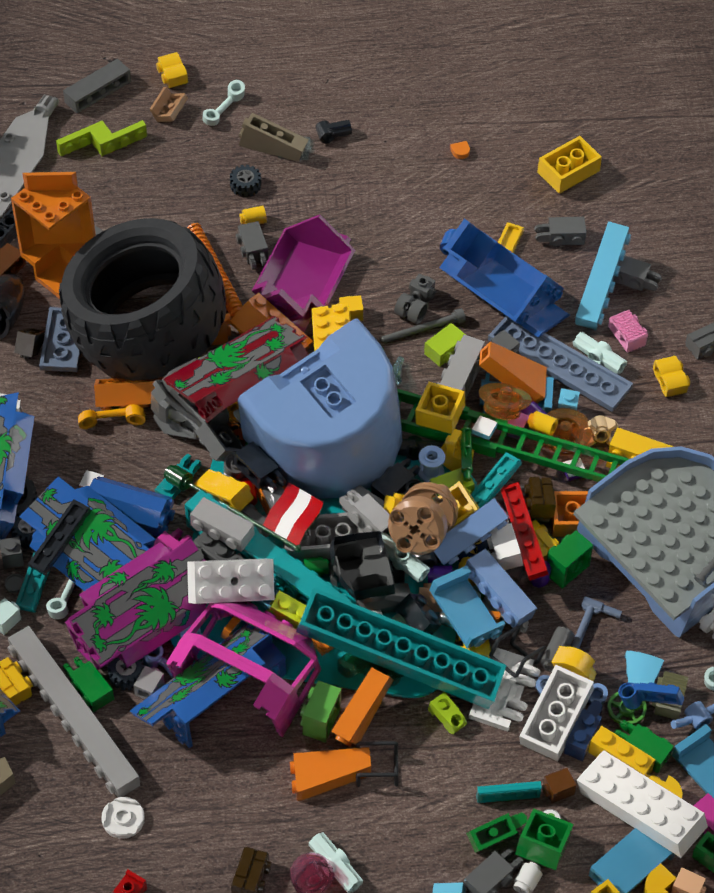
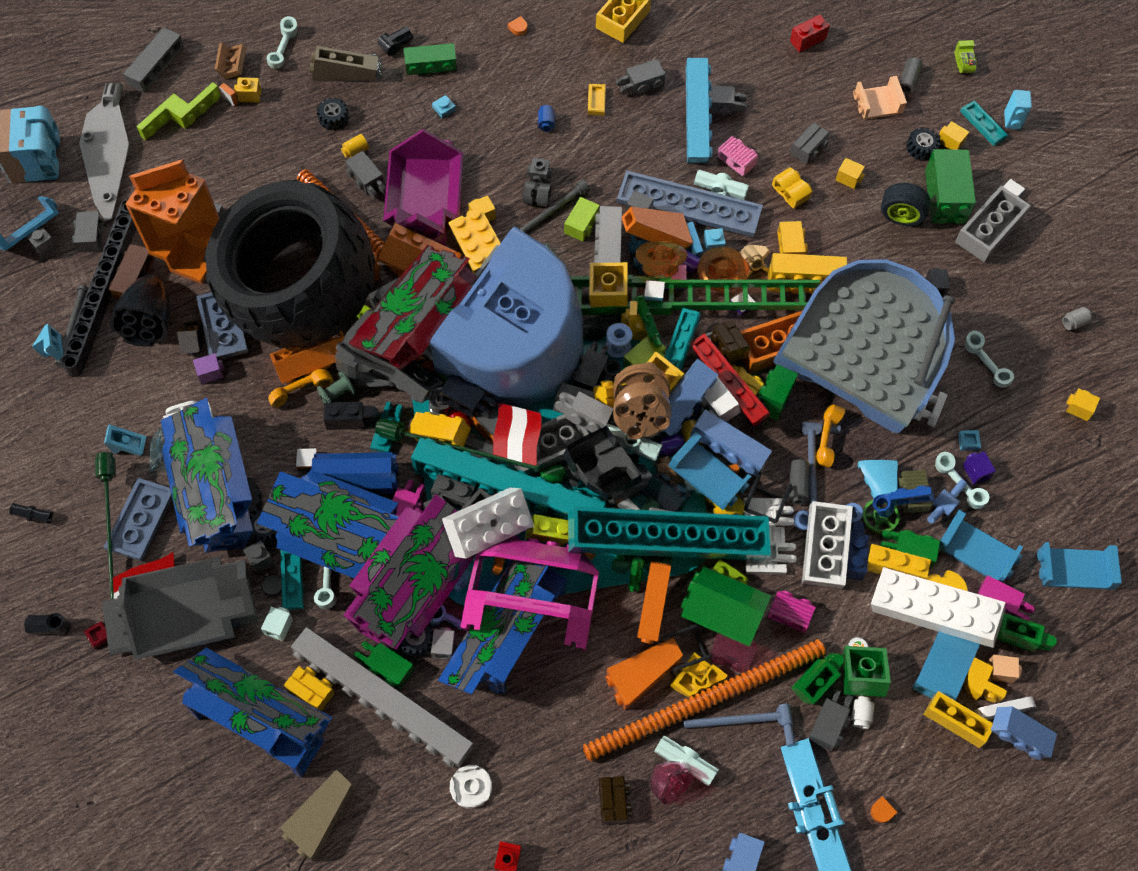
camera: 20 degrees left, 10 degrees up
(34, 374) = (209, 368): none -> medium lavender brick
(59, 537) = (305, 532): black tile -> none
(143, 429) = (337, 389): none -> sand green hose
(145, 454) = (348, 415): none -> black hinge
(154, 136) = (229, 94): none -> orange tile
(172, 70) = (220, 24): yellow brick -> none
(174, 137) = (248, 90): none -> yellow brick
(222, 524) = (456, 468): light grey brick -> none
(321, 711) = (616, 614): bright green brick -> none
(355, 204) = (443, 106): none -> medium azure plate
(358, 677) = (636, 574): none -> green axle
(360, 156) = (430, 59): none -> green brick
(378, 792) = (697, 677): none -> yellow slope
(378, 815) = (705, 699): none -> orange piece
(423, 781) = (732, 653): none -> clear pink brick
(430, 733) = (724, 605): none -> green brick
(447, 855) = (782, 715): none -> sand blue bar
(496, 763) = (791, 611): none -> dark pink brick
(503, 279) = (610, 141): blue panel -> none
(508, 792) = (813, 634): teal tile -> none
(542, 423) = (702, 269): yellow brick -> none
(559, 785) = (853, 612): reddish brown brick -> none
(575, 661) = (823, 491): yellow brick -> none
(616, 599) = (832, 415): none -> light orange piece
(649, 421) = (791, 238): none -> yellow brick

